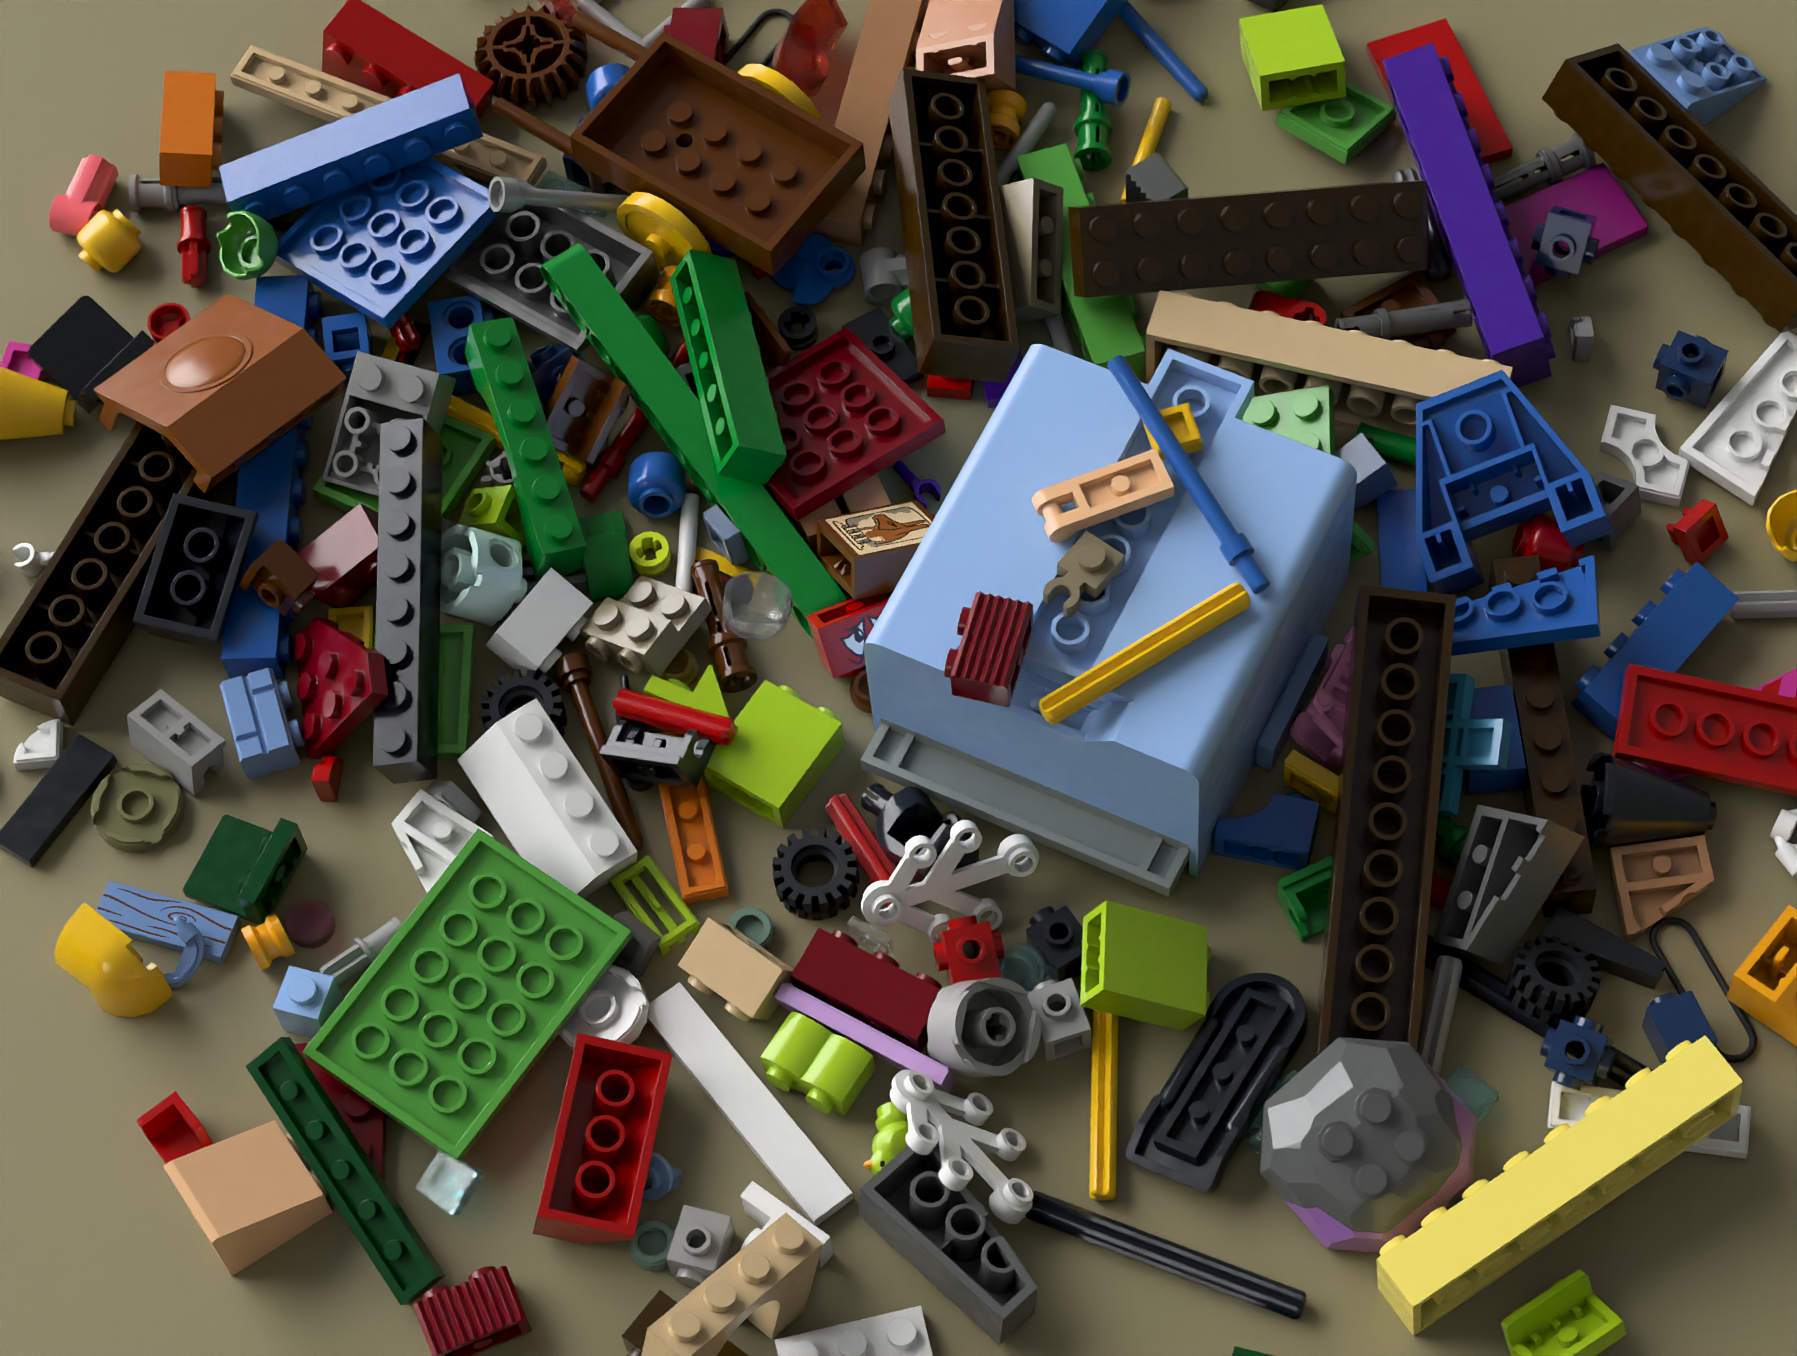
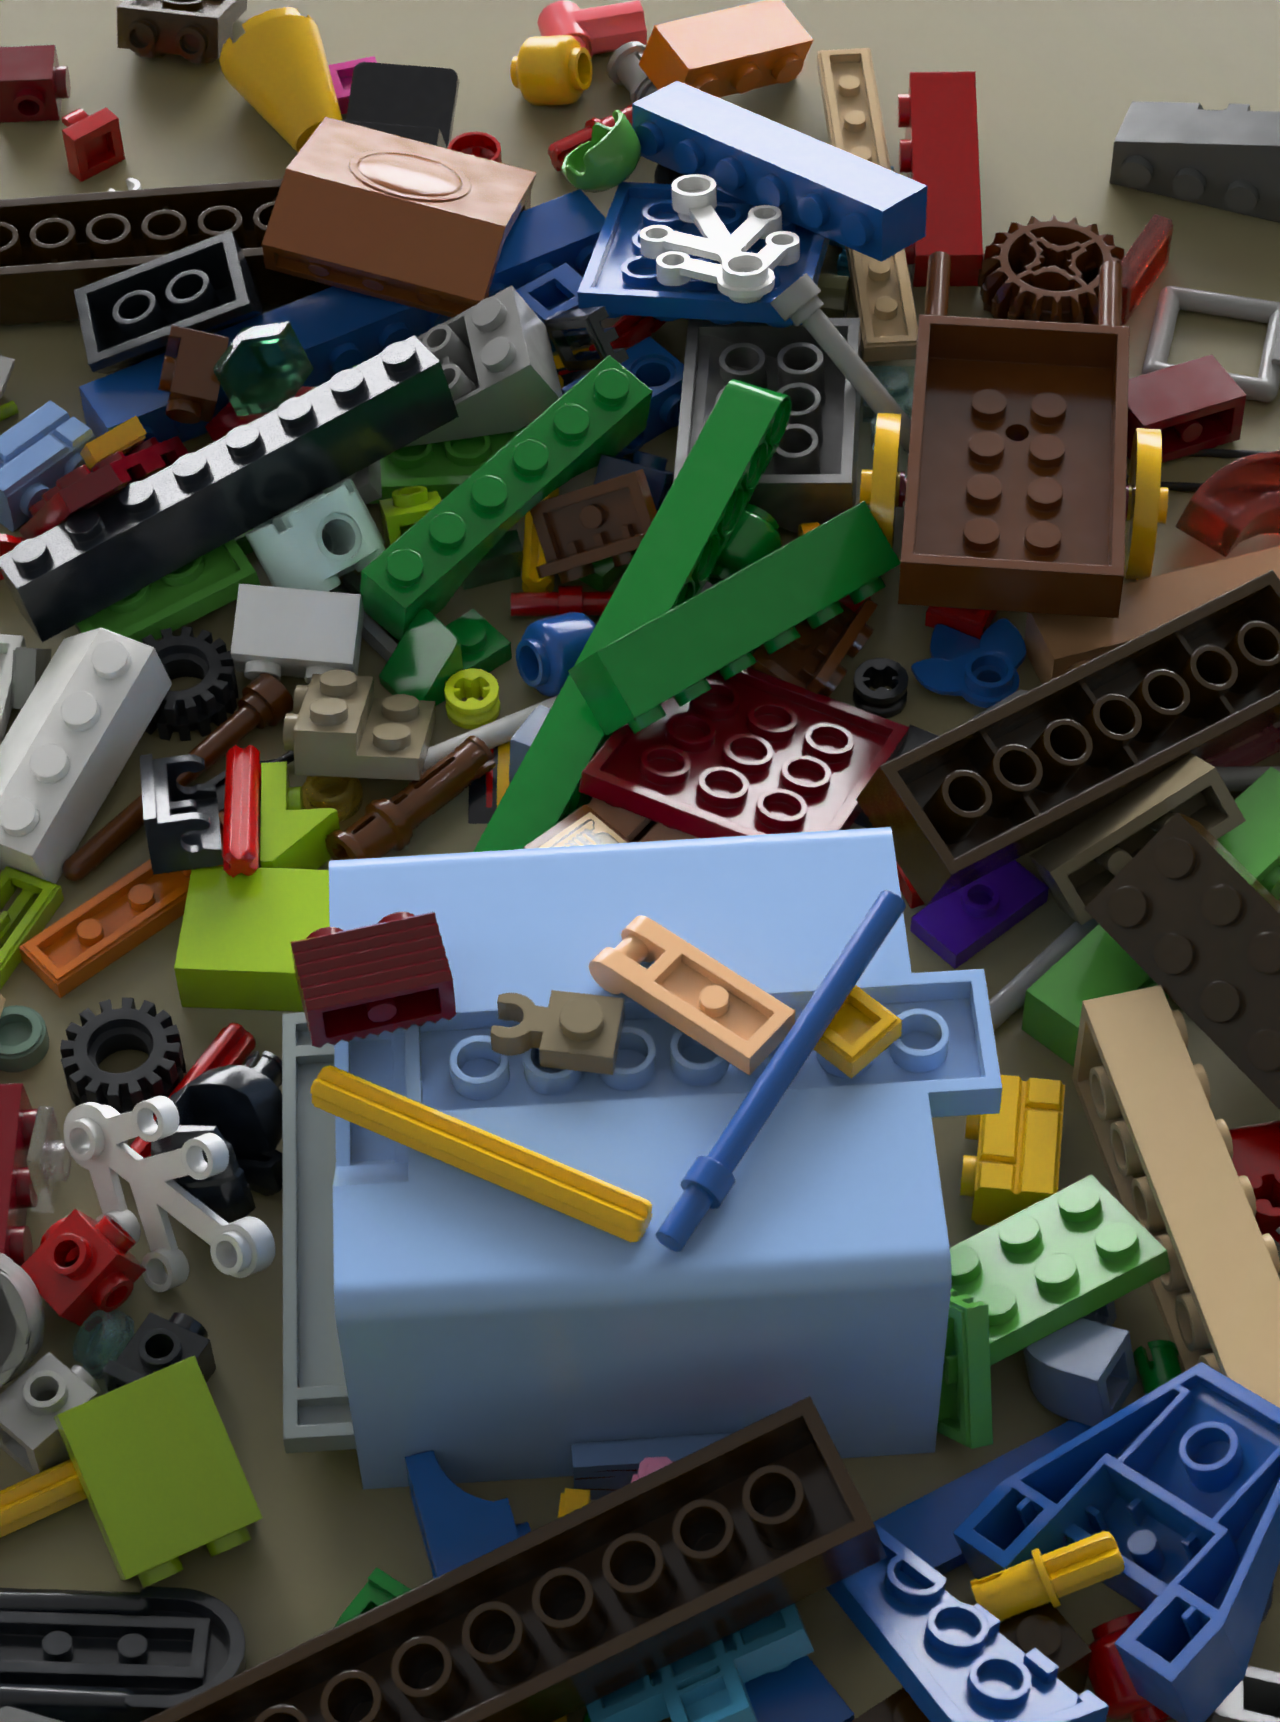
camera: 55 degrees right, 10 degrees down
(299, 657) = (123, 437): none -> yellow tile
(314, 532) = (263, 368): none -> clear green panel
(414, 336) = (595, 334): none -> black tile
(451, 217) = (742, 274): none -> white plant
(756, 605) = (440, 811): clear hair -> none
(1492, 548) = (1049, 1576): none -> yellow axle

